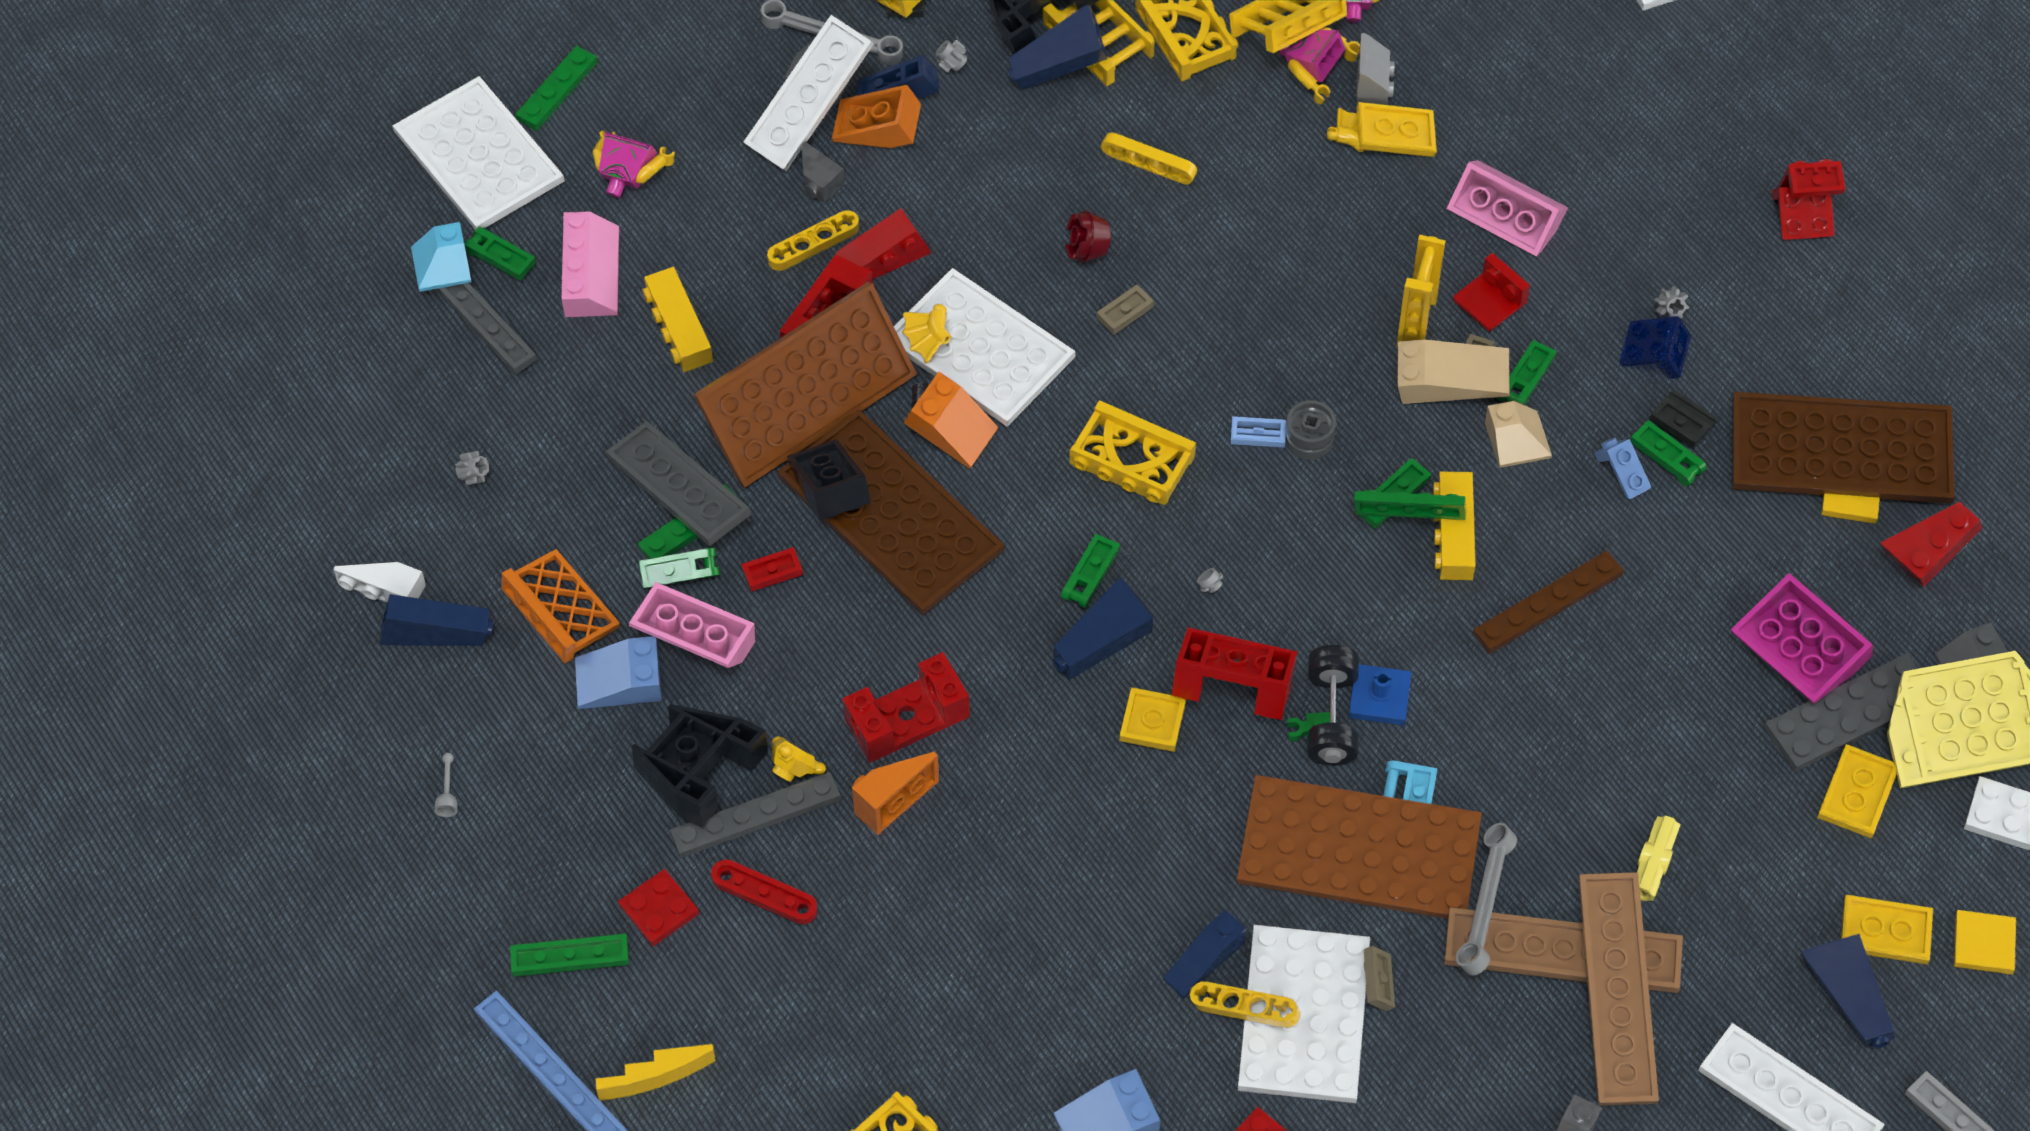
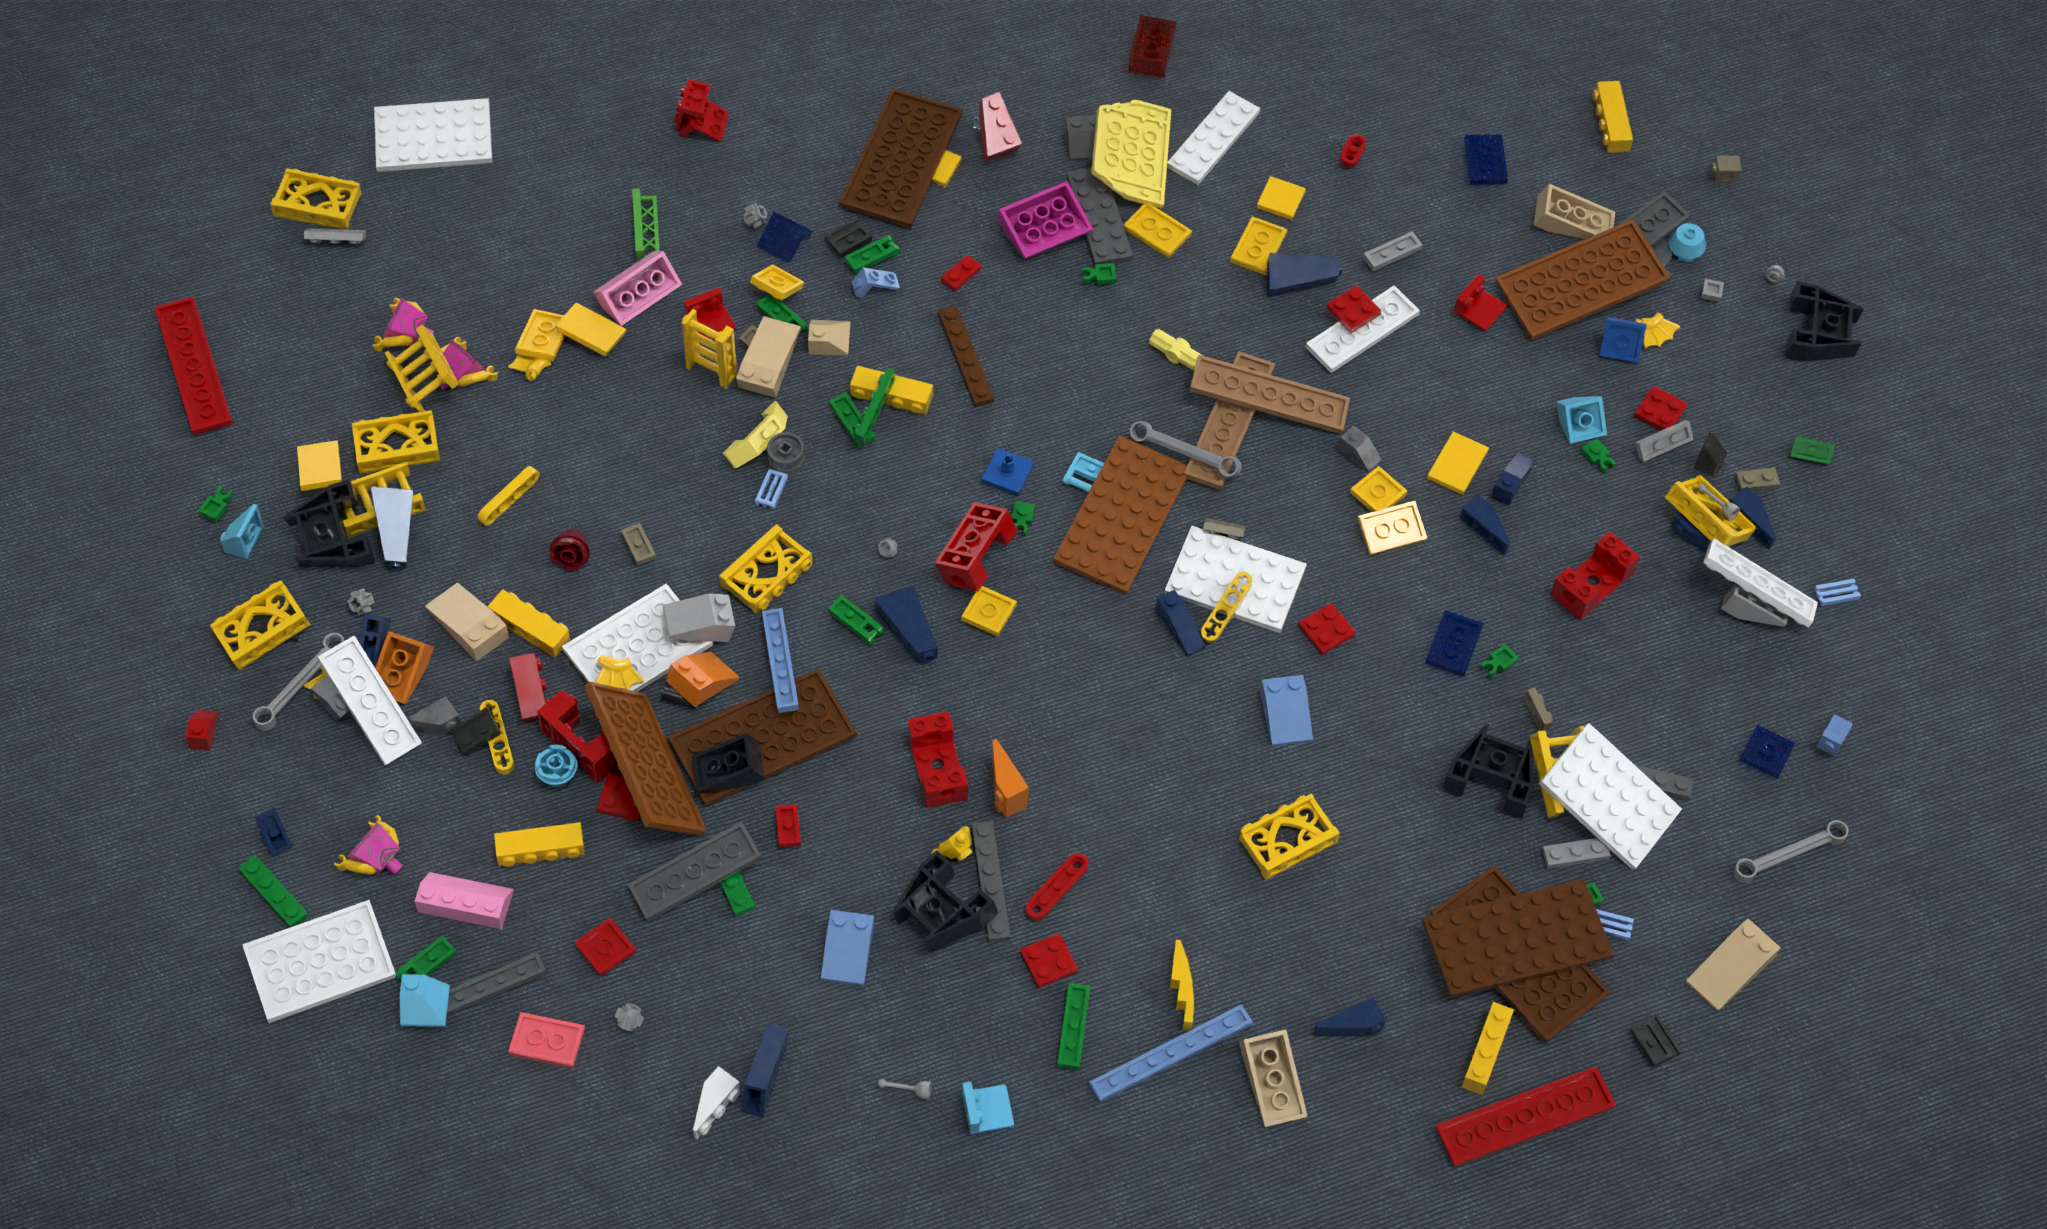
camera: 80 degrees left, 0 degrees up
(430, 398) = (546, 1040): none -> coral tile
(433, 877) = (987, 1108): none -> medium azure bracket
(538, 612) = (777, 992): orange fence -> none
(560, 422) = (605, 947): none -> red plate
(626, 62) = (273, 831): none -> dark blue slope
(678, 568) = (767, 889): plate -> none
(694, 626) = (828, 884): bright pink slope -> none
(778, 301) = (556, 765): none -> medium azure cone
(810, 216) = (476, 731): none -> pearl dark grey plate
(960, 168) = (468, 621): none -> tan slope
(975, 226) = (529, 623): none -> yellow brick
(999, 498) = (780, 660): none -> medium blue plate
(1029, 395) = (700, 618): none -> light grey slope
(1333, 668) = (1044, 507): black axle -> none
(1342, 400) = (756, 442): none -> light yellow slope
(1374, 72) = (490, 335): light grey slope -> none
(1422, 174) = (590, 329): none -> yellow tile
(1573, 353) = (777, 282): none -> yellow plate
(1606, 182) = (639, 225): none -> bright green fence
(1682, 565) = (961, 273): none -> red plate
(1748, 736) = (1102, 274): none -> green plate
(1814, 1073) = (1353, 309): none -> red plate

